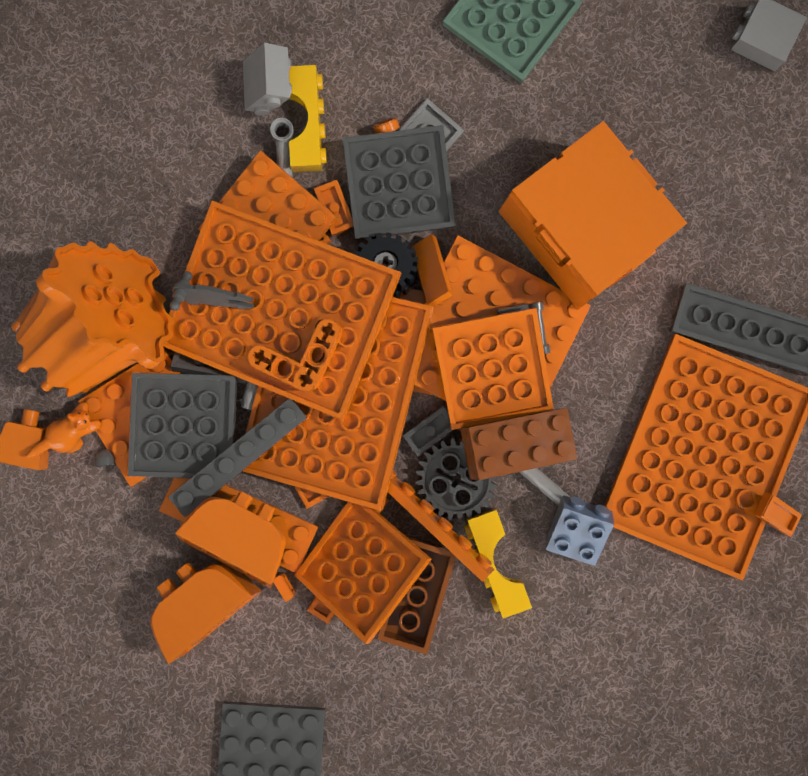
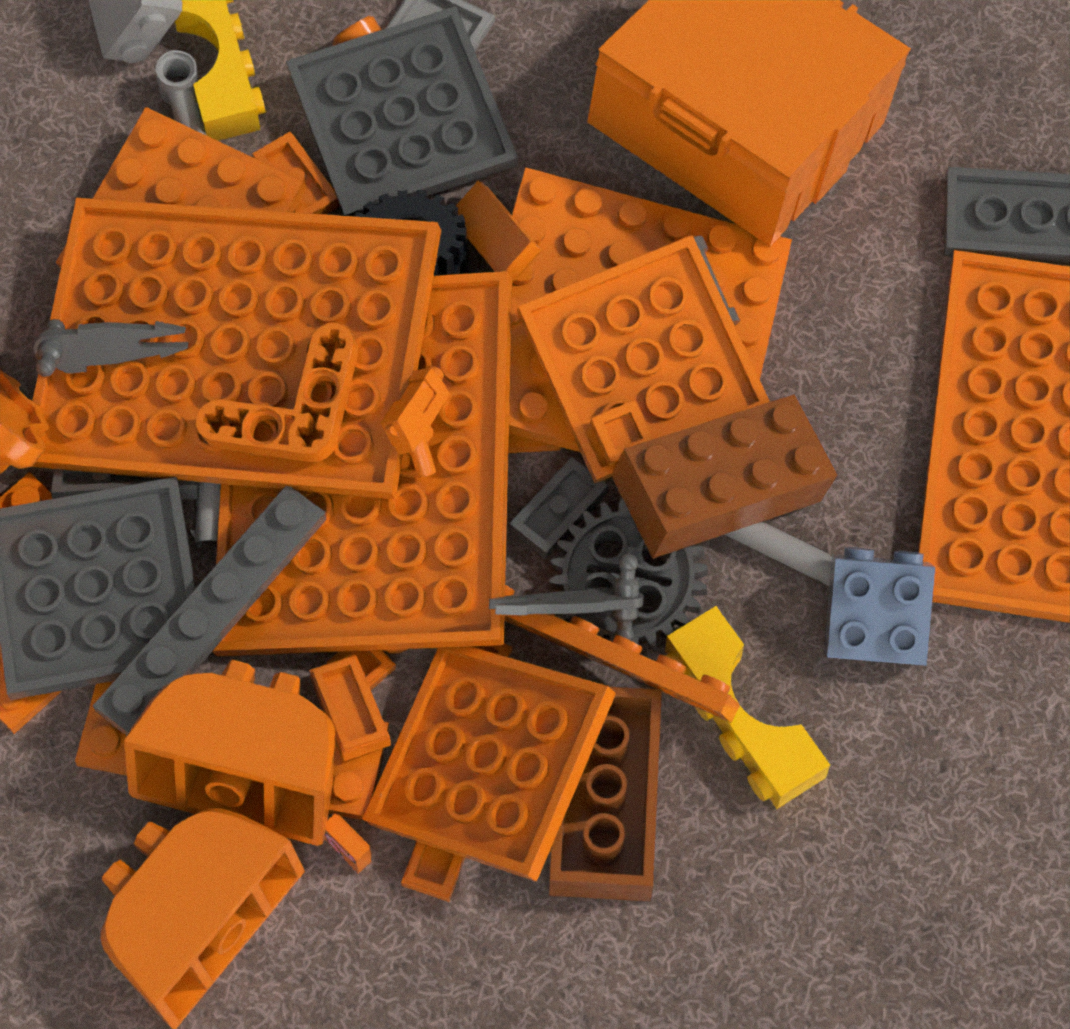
camera: 15 degrees left, 20 degrees down
(299, 518) = (351, 707): none -> orange tile
(360, 383) = (410, 417): none -> orange piece
(425, 497) = (622, 599): none -> dark grey piece
(470, 412) = (620, 429): none -> orange plate

